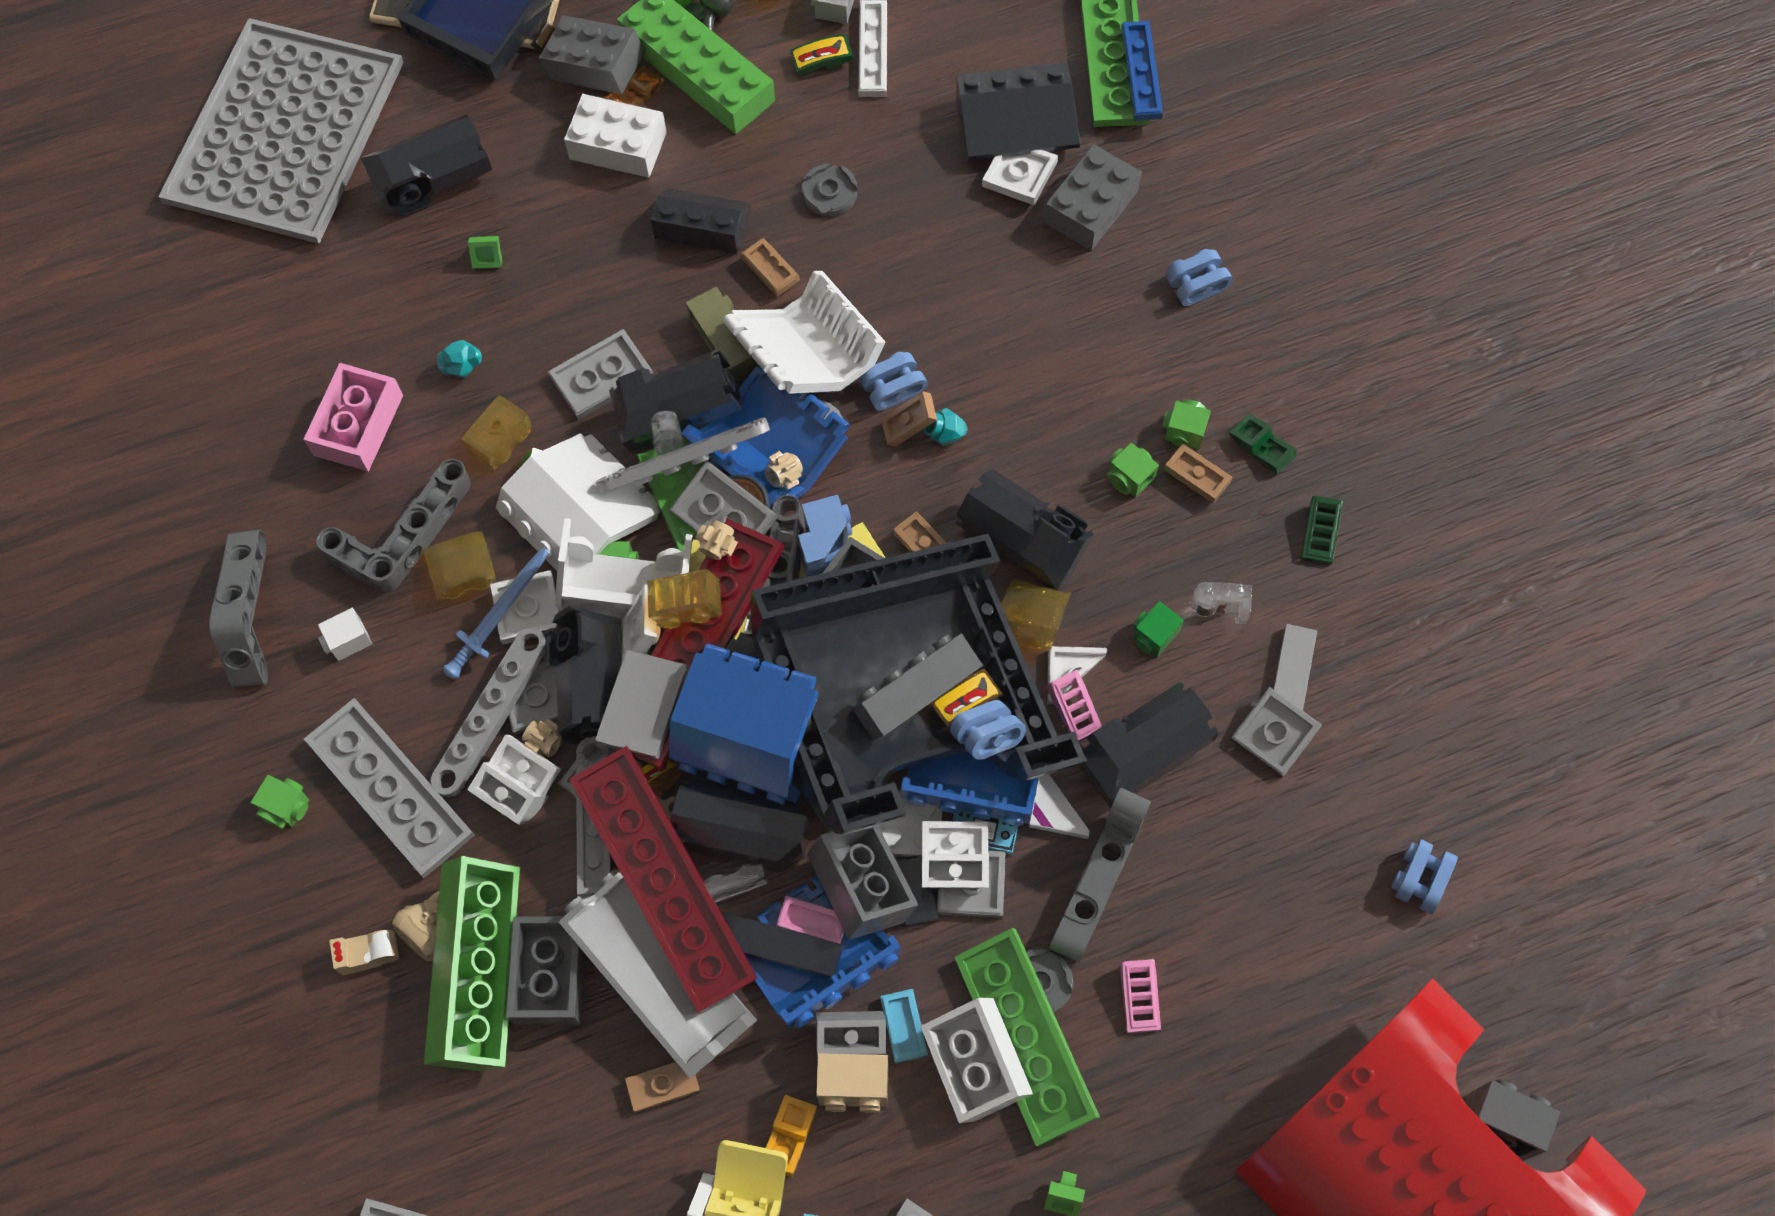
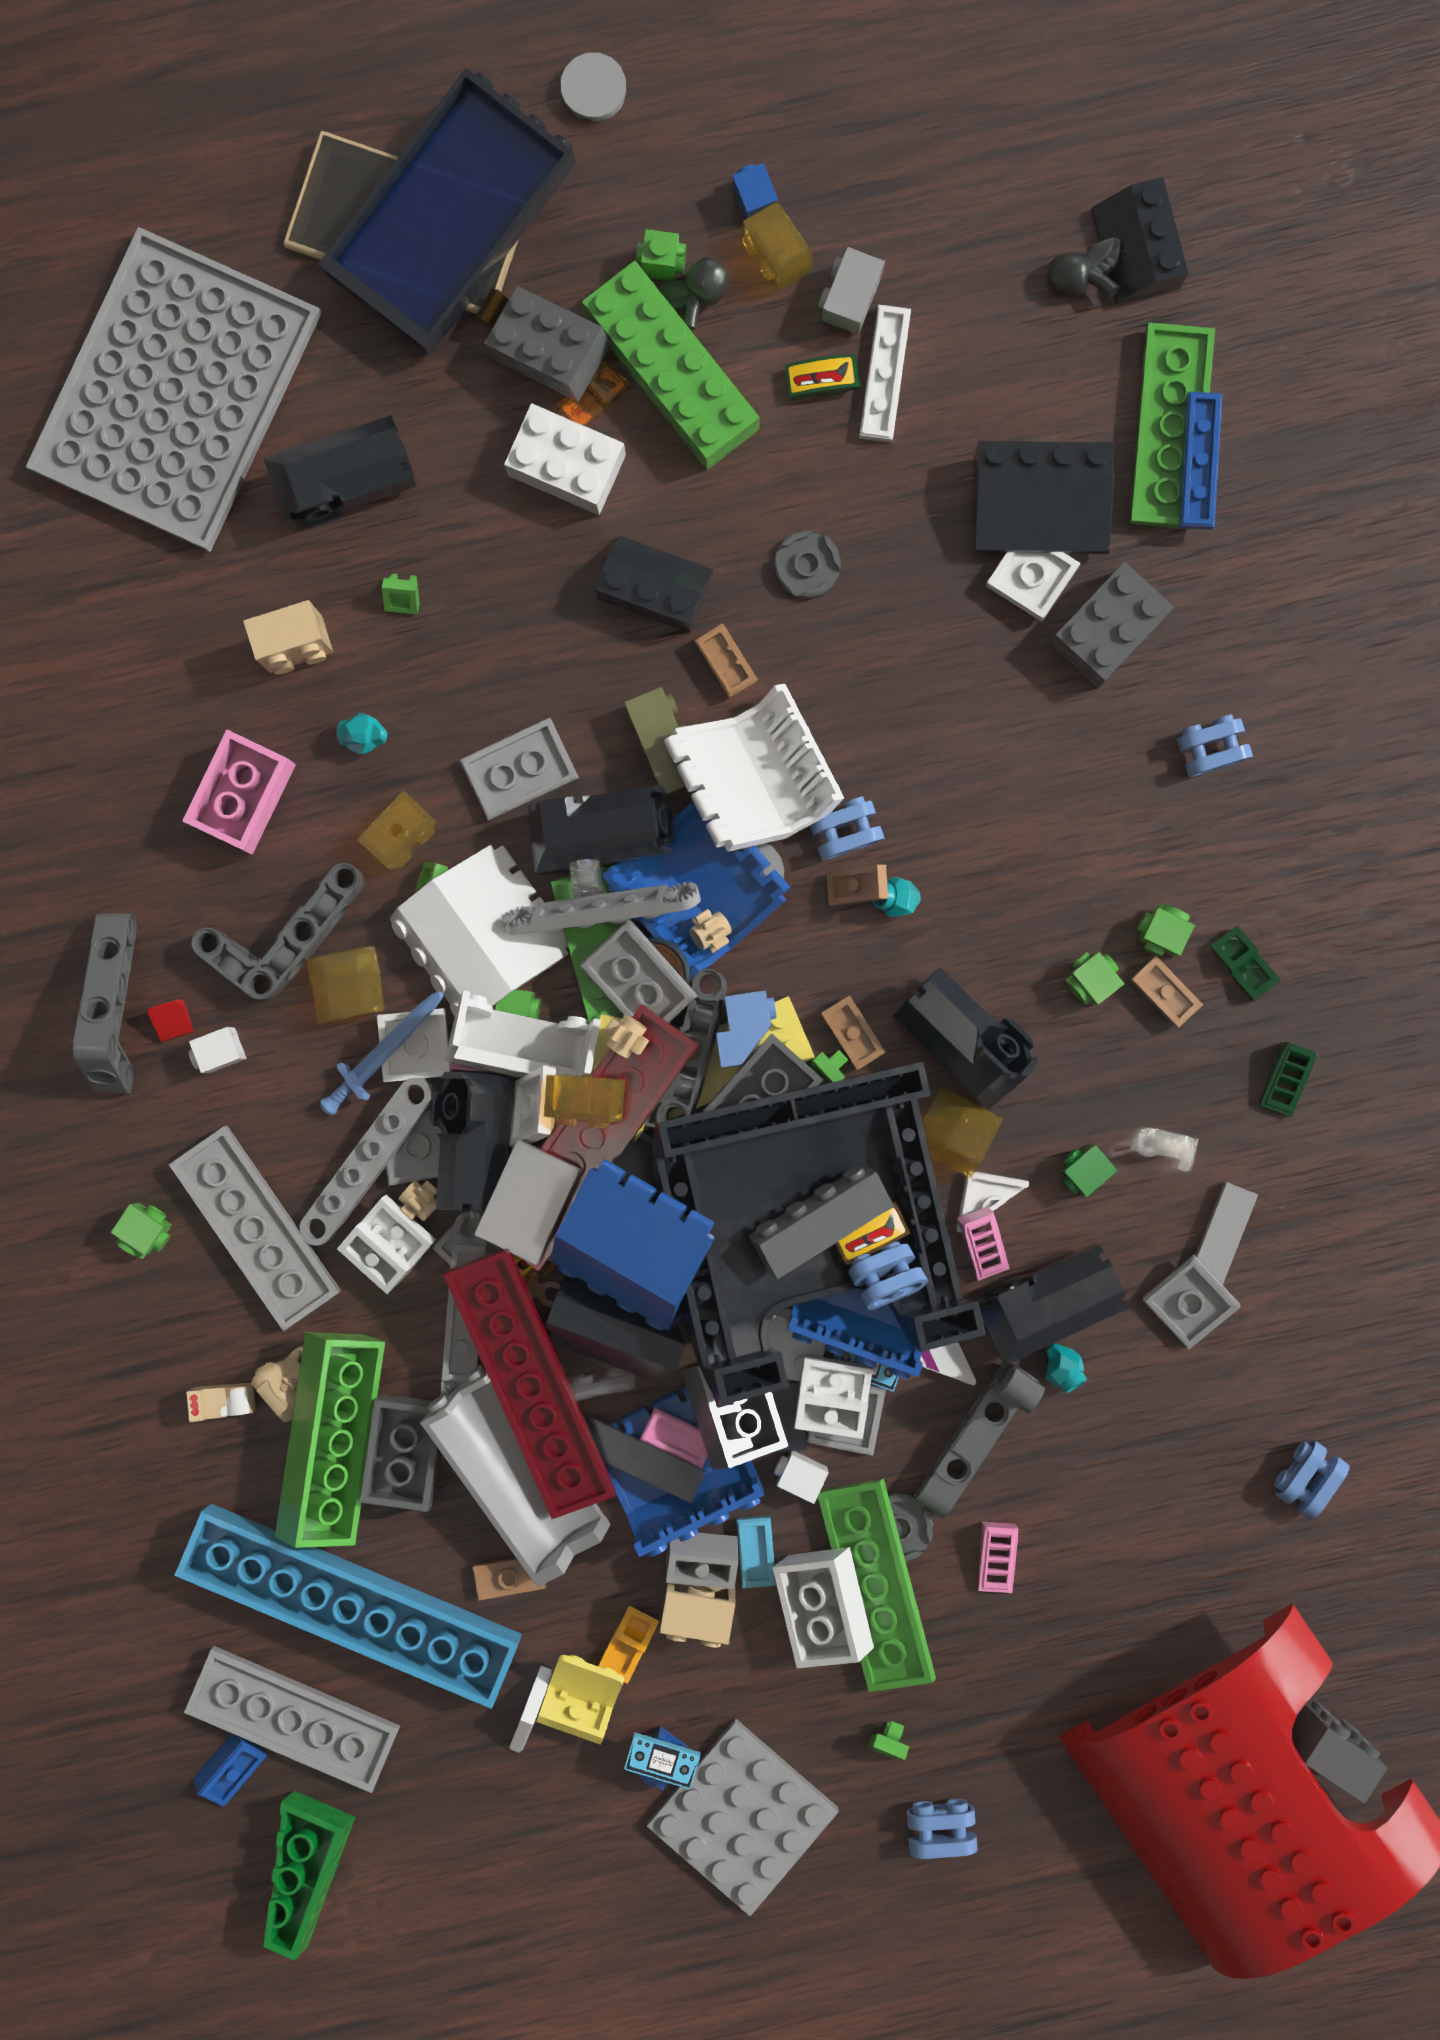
camera: 15 degrees right, 20 degrees up
(300, 615) = (171, 1020): none -> red slope
(390, 289) = (288, 637): none -> tan brick
(504, 1129) = (349, 1605): none -> dark azure brick
(935, 942) = (800, 1475): none -> white brick
(1171, 806) = (1064, 1368): none -> teal rock

